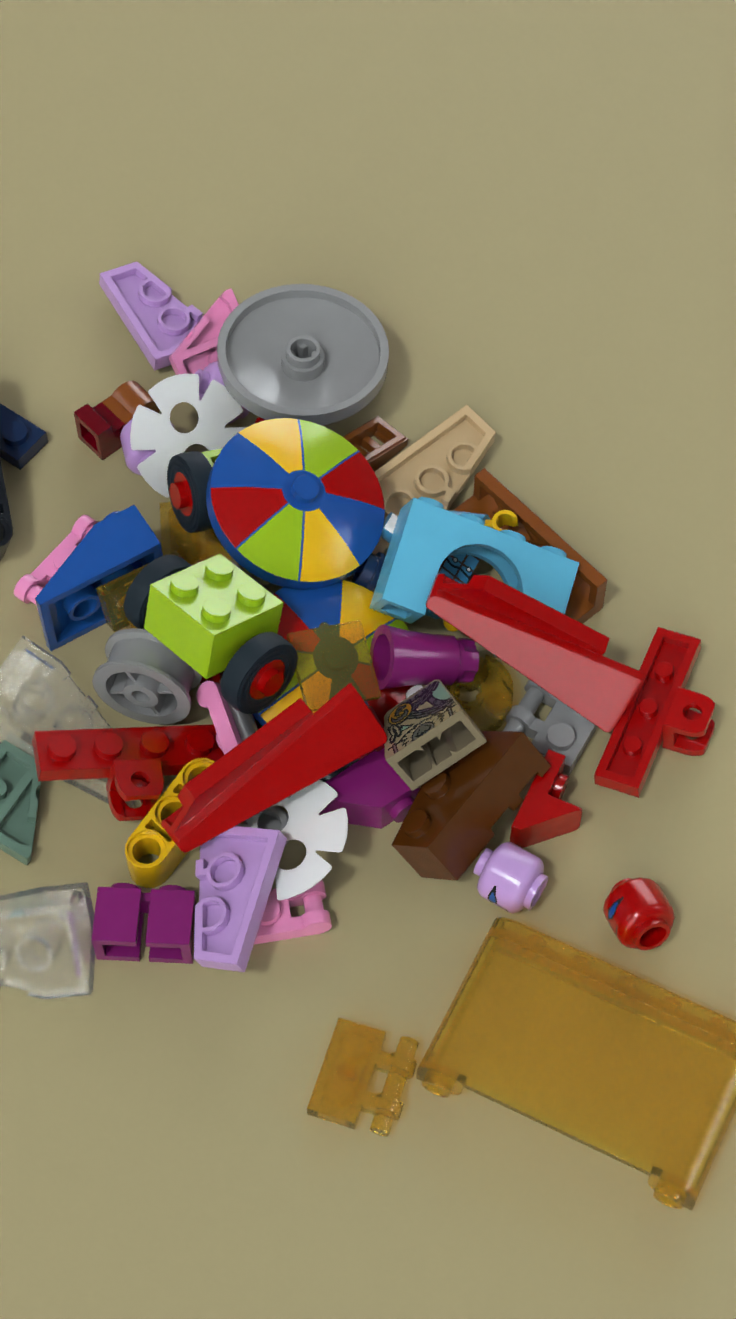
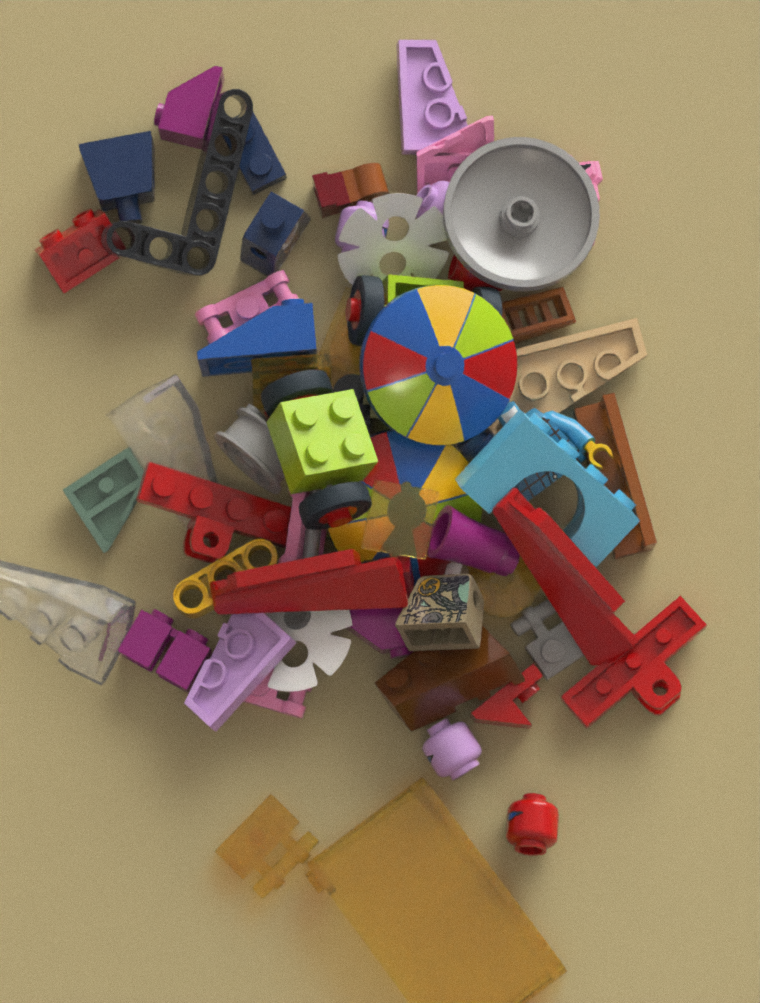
camera: 25 degrees right, 20 degrees up
(63, 467) = (274, 233): none -> dark blue torso

